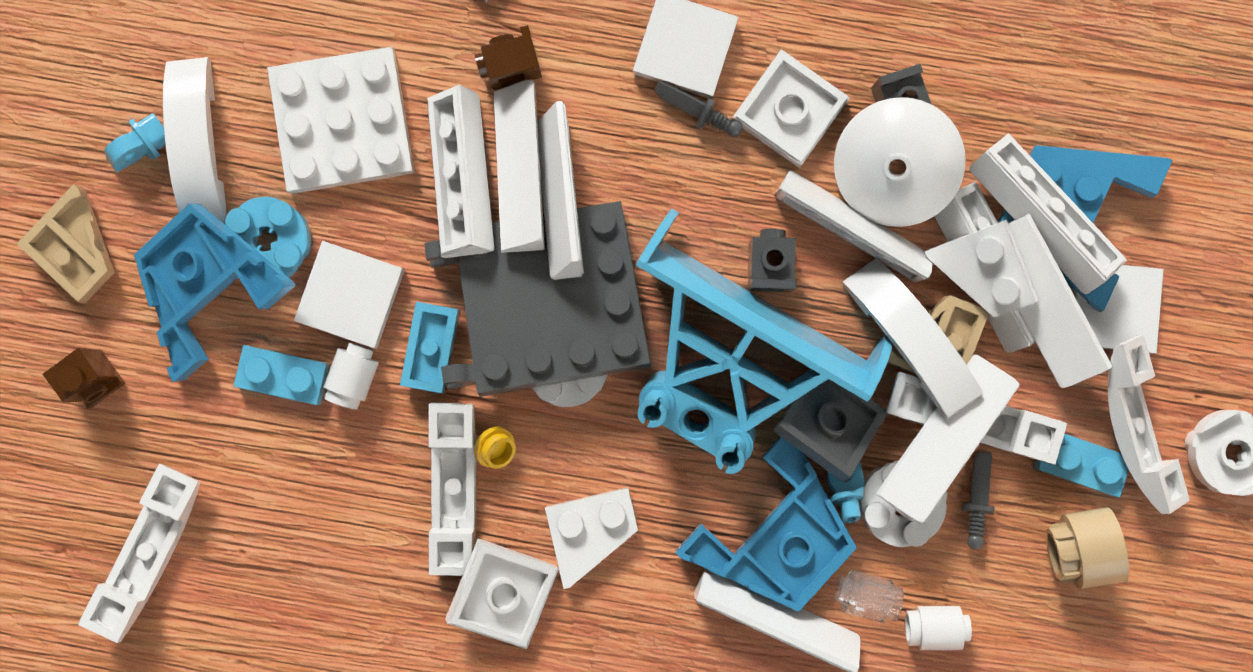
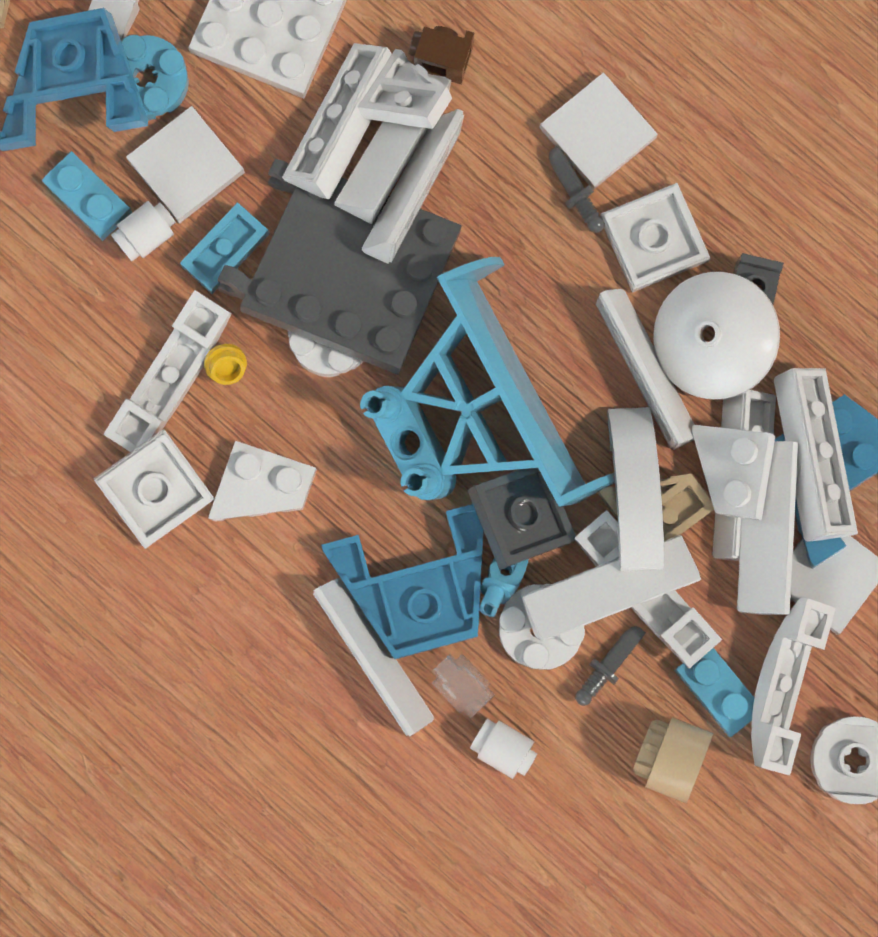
camera: 30 degrees right, 5 degrees down
(503, 117) = (405, 95): none -> white wing
(767, 277) = (553, 368): dark grey brick -> none

